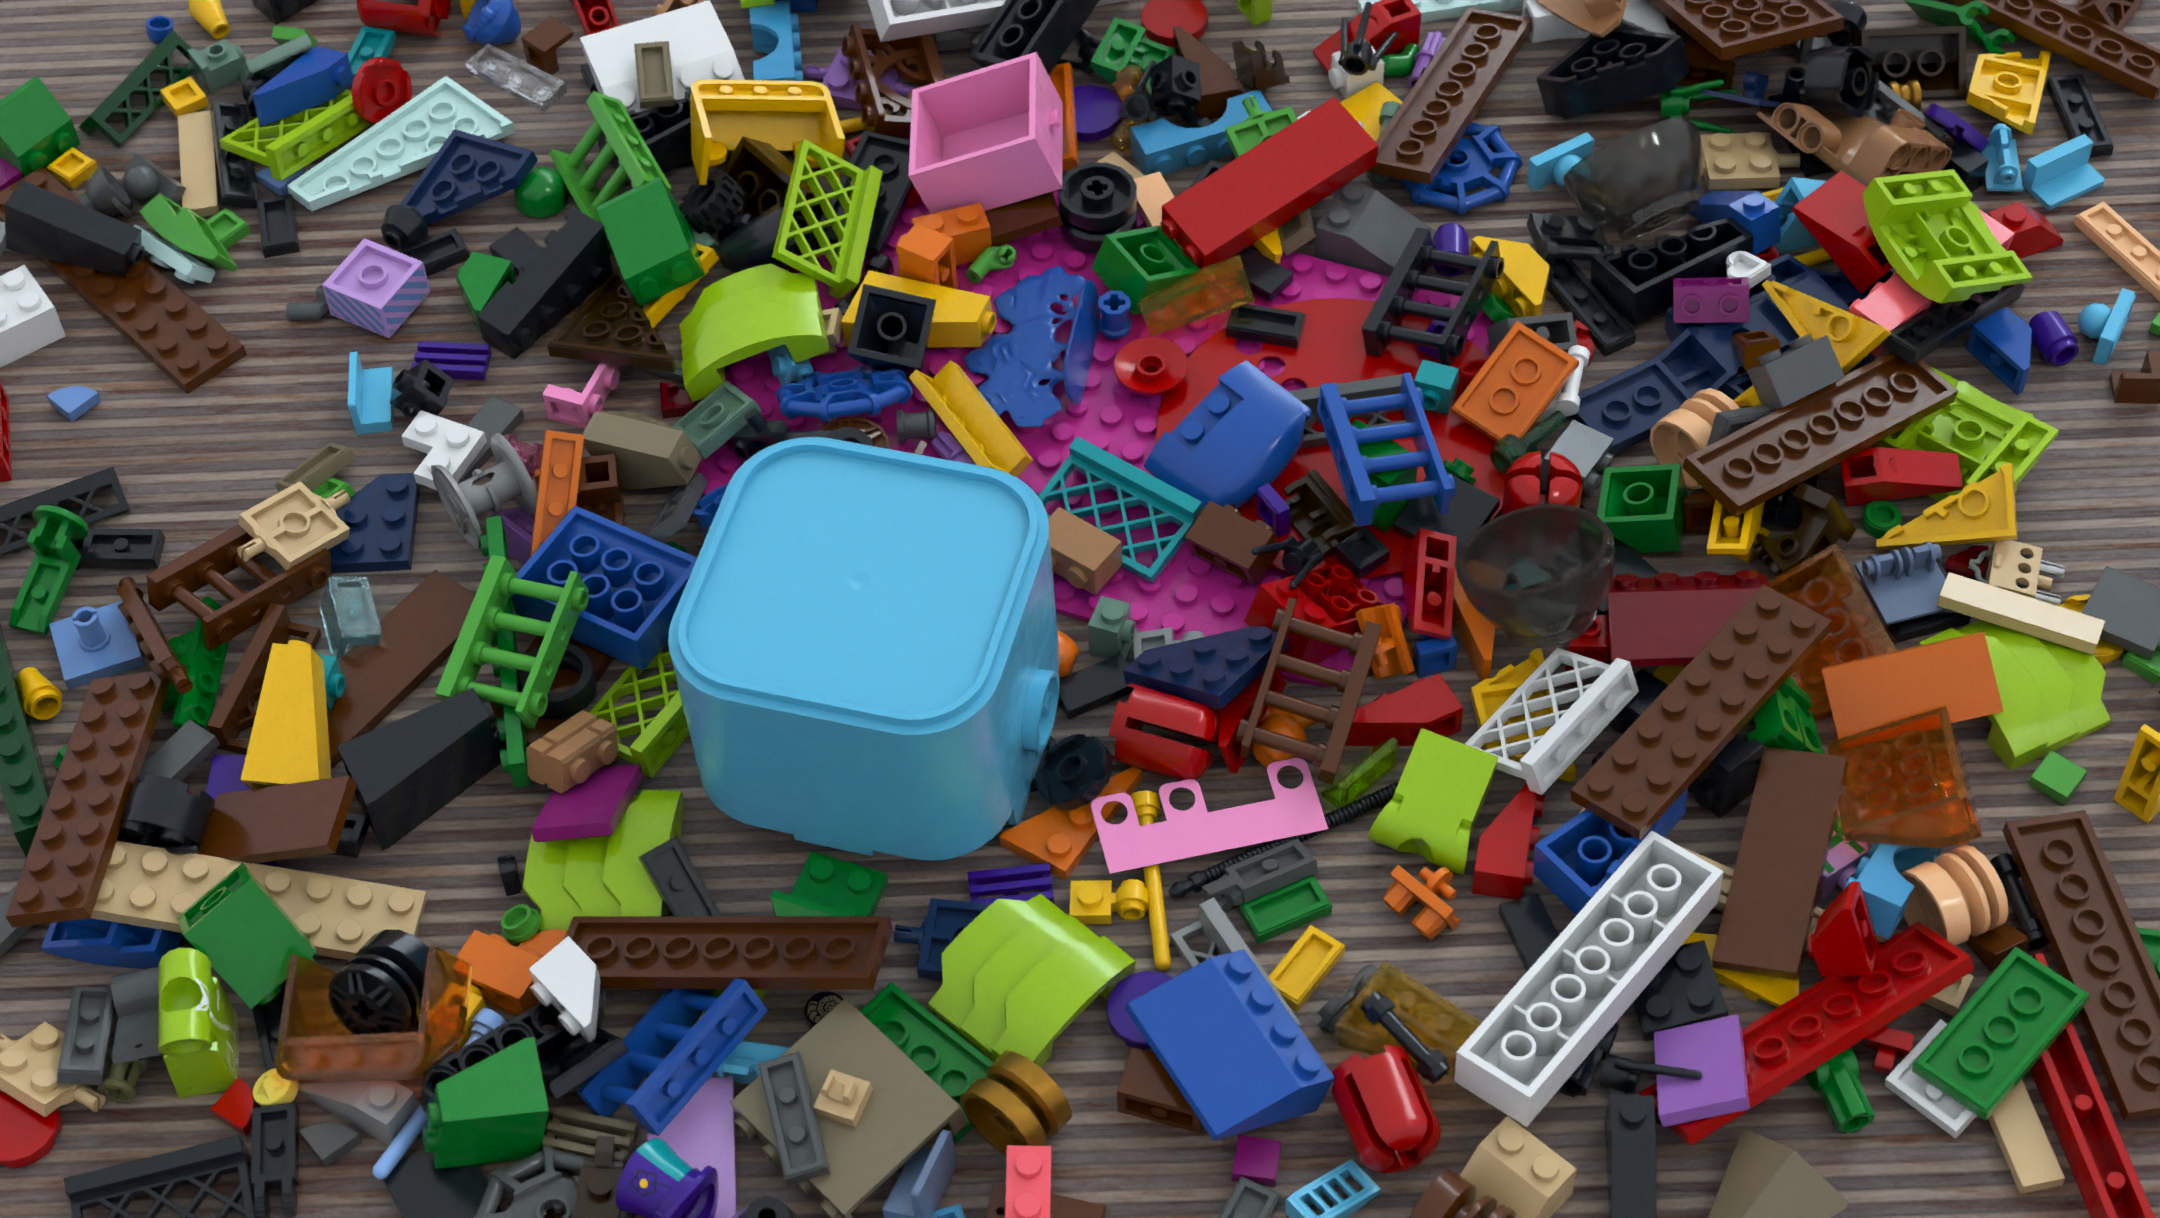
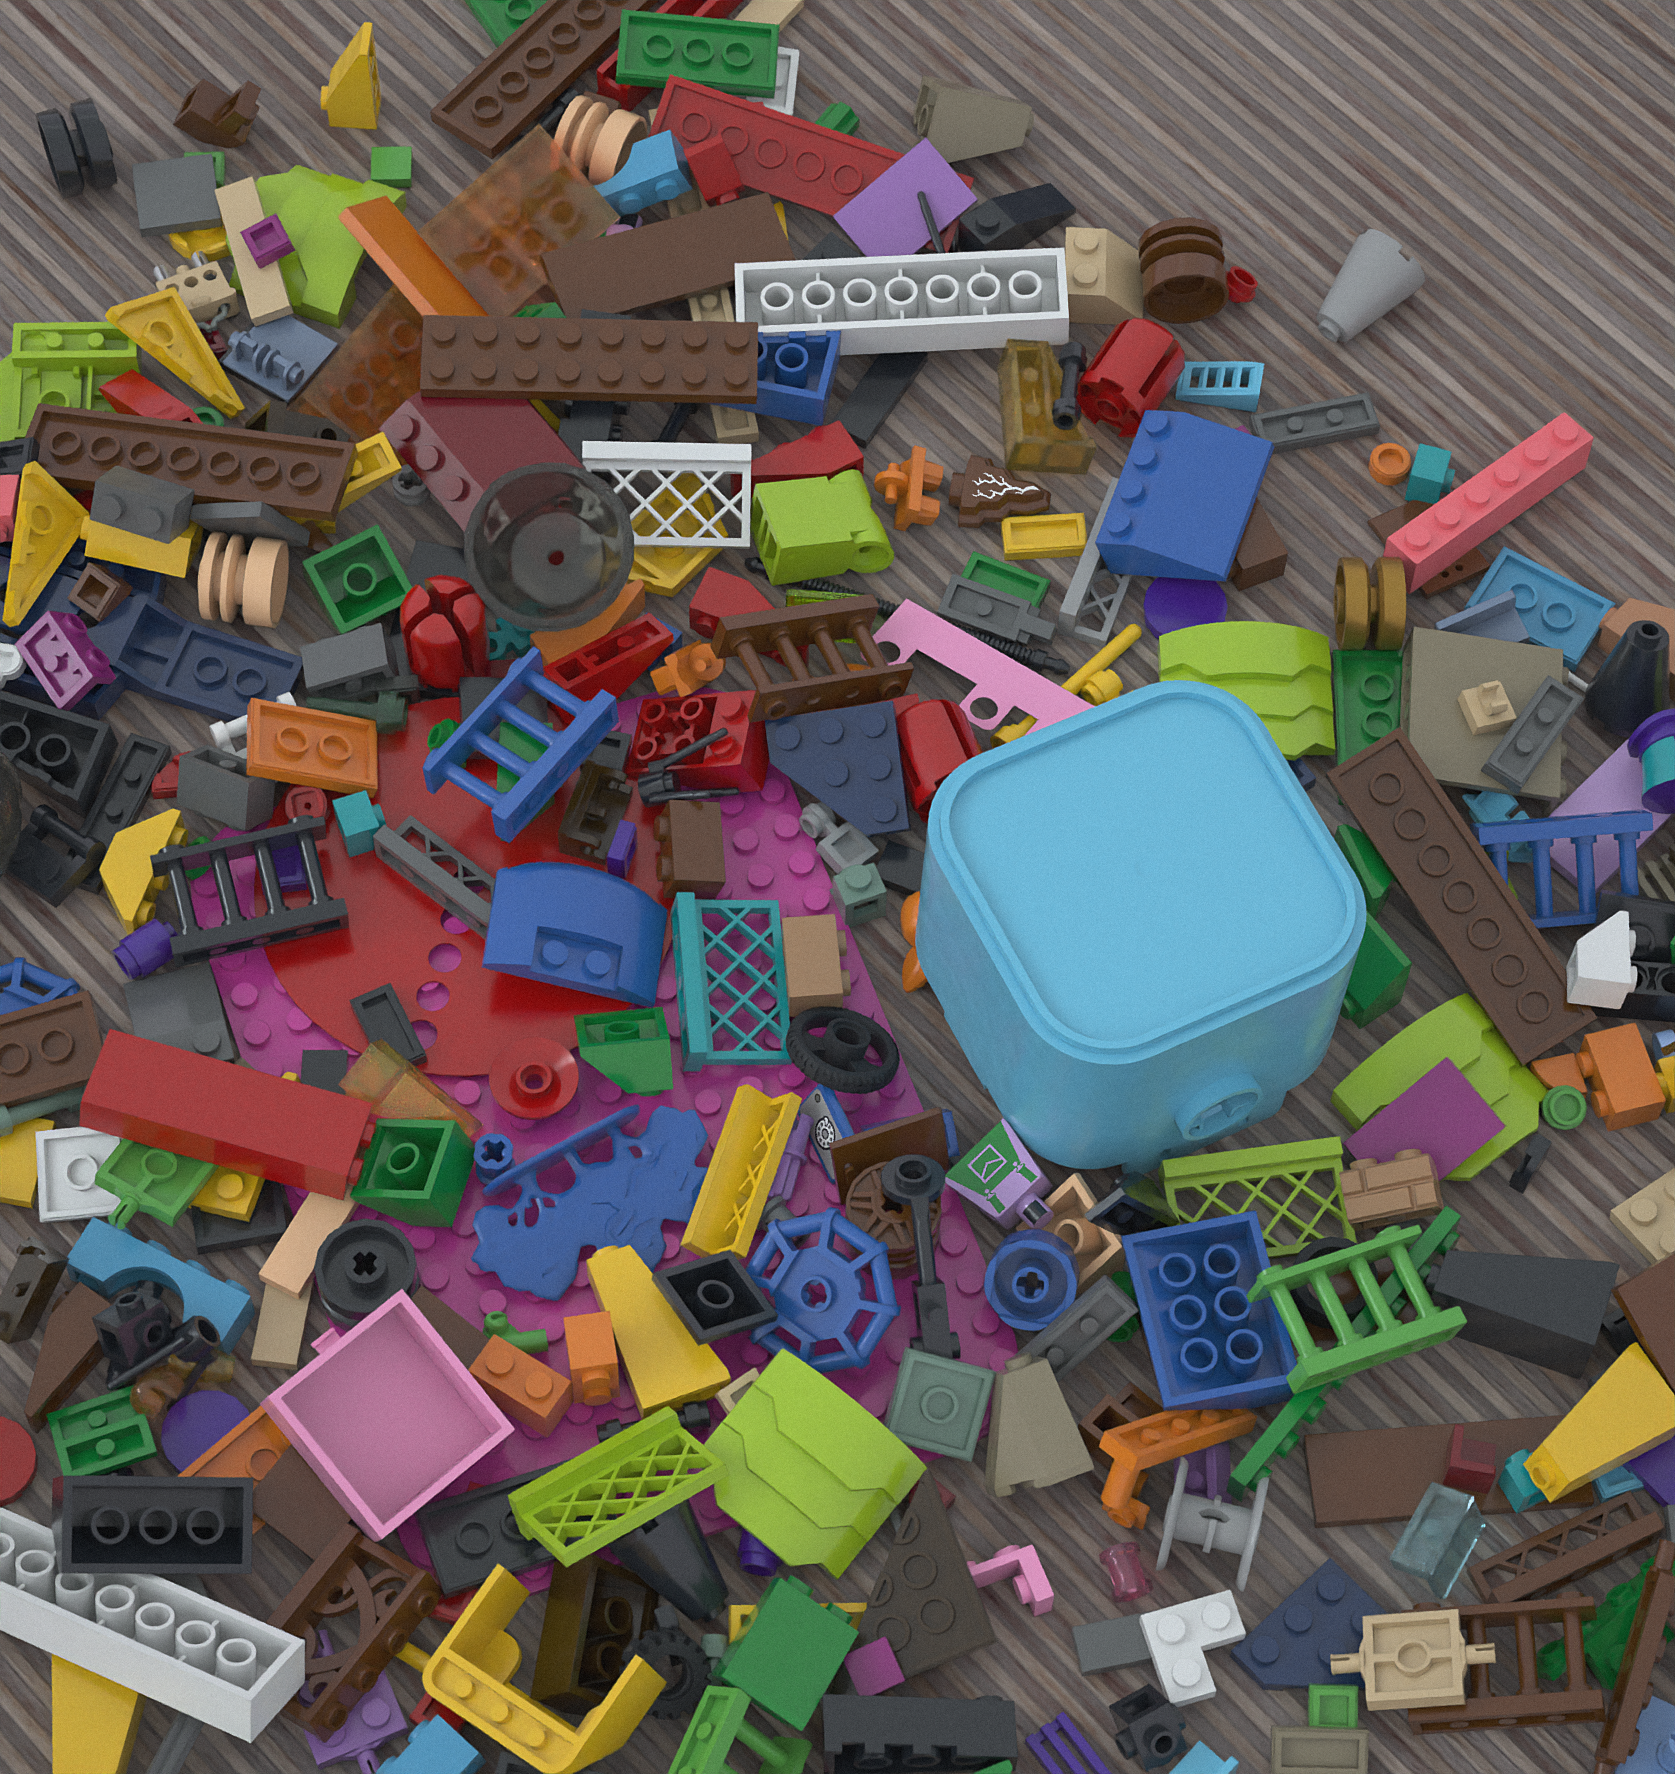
camera: 135 degrees left, 10 degrees up
(366, 658) = (1469, 1463): none -> dark red panel
(601, 288) = (874, 1668): none -> magenta tile
(678, 881) = (1428, 984): black tile -> none
(740, 873) = (1376, 977): none -> green slope
(1124, 418) = (628, 1048): none -> green slope
(1335, 1008) = (1058, 469): dark grey plate -> none
(1371, 942) = (993, 494): none -> reddish brown rock
(2015, 611) = (267, 241): none -> magenta tile

